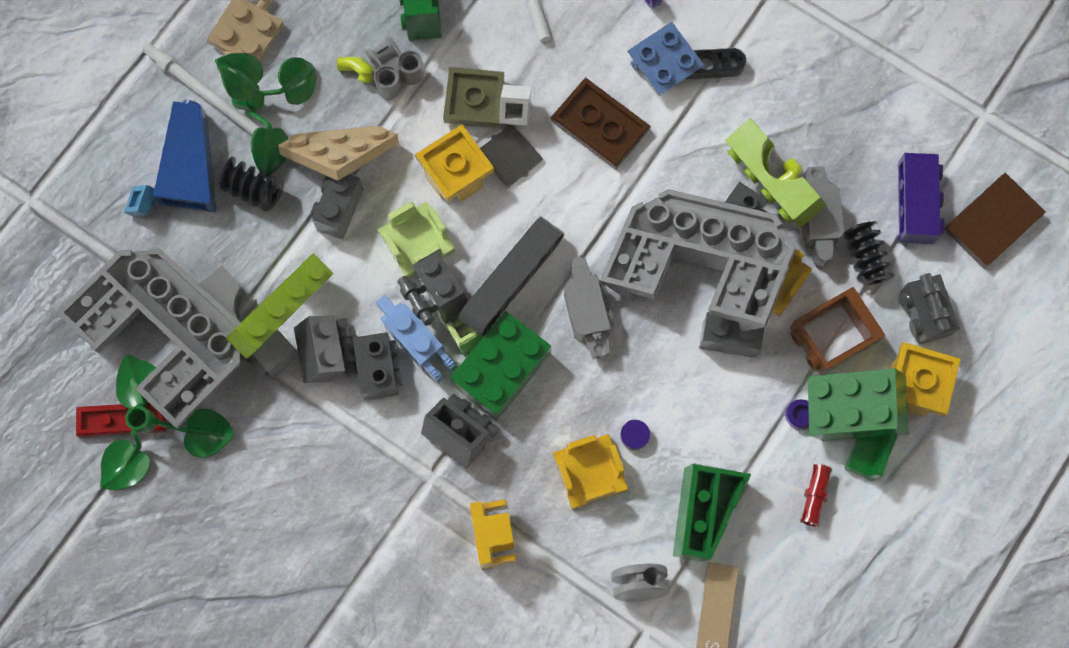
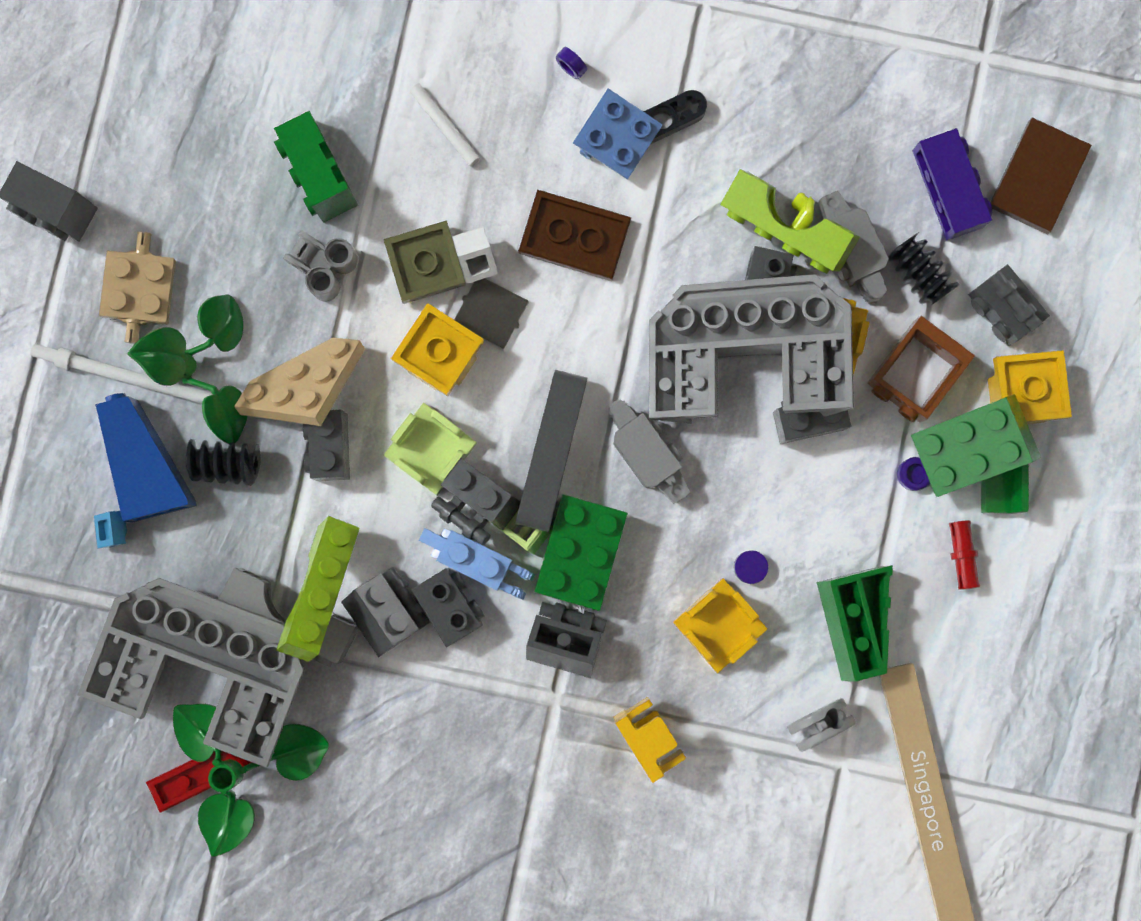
camera: 20 degrees left, 10 degrees up
(358, 65) = (282, 276): neon yellow arm -> none

